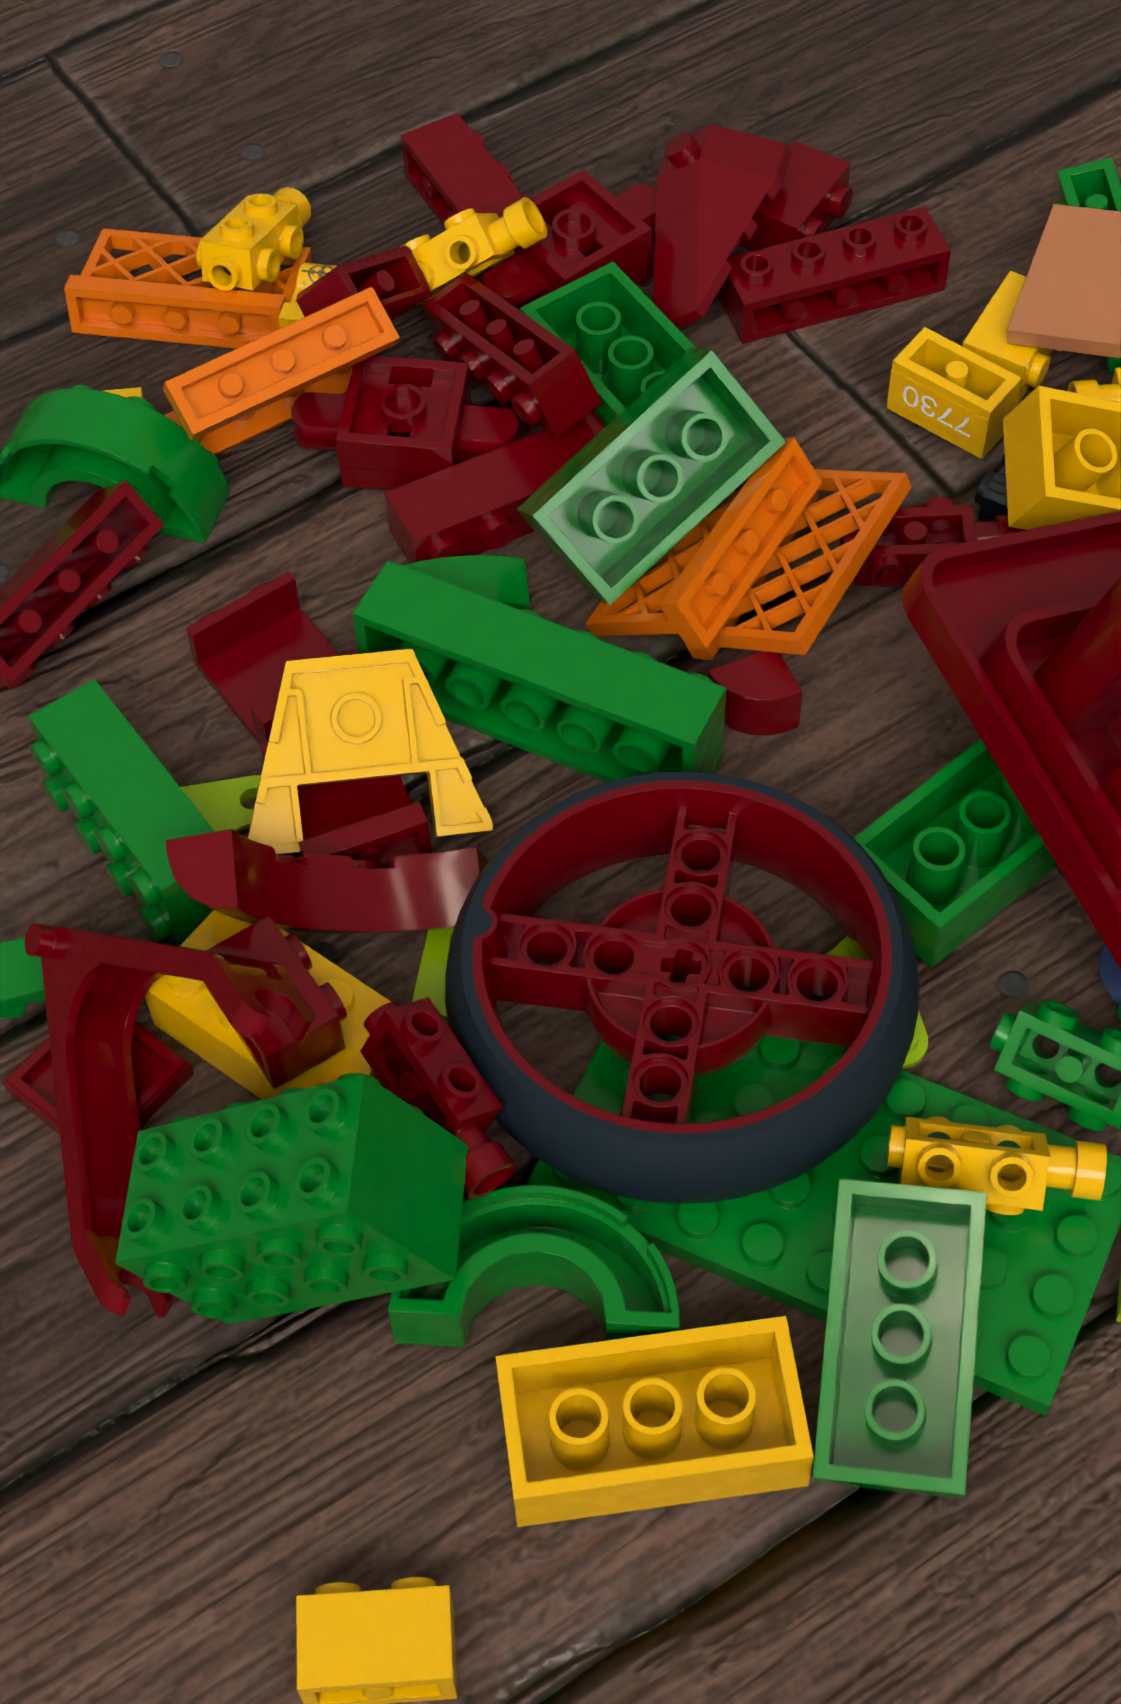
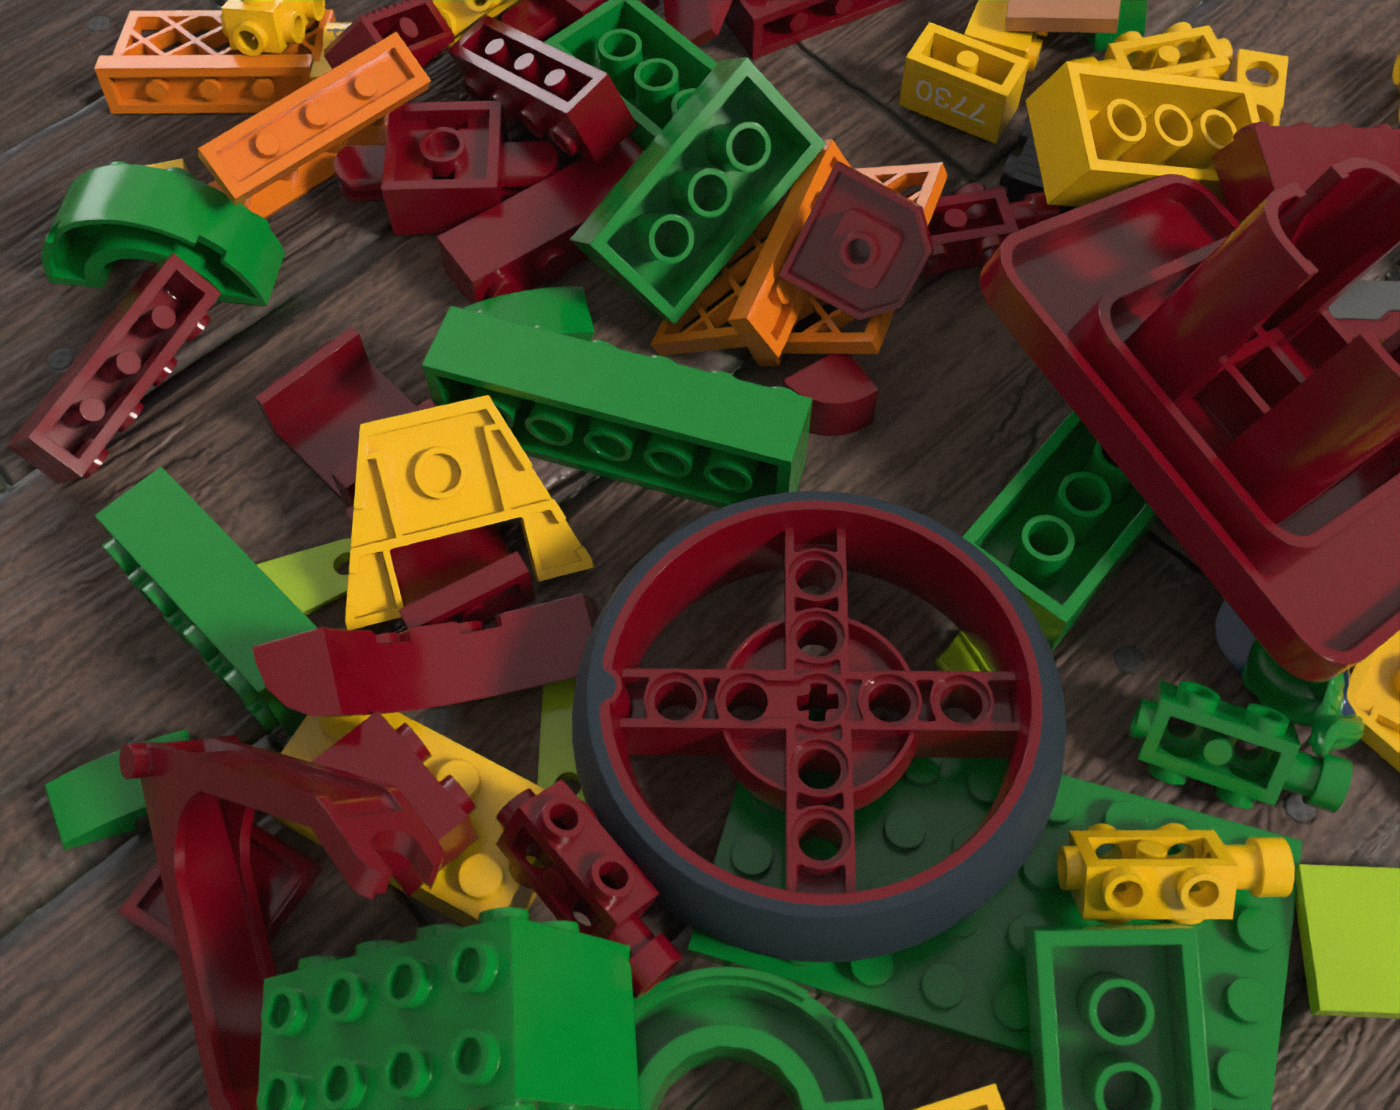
camera: 10 degrees left, 5 degrees up
(798, 546) = (860, 246): none -> dark red piece

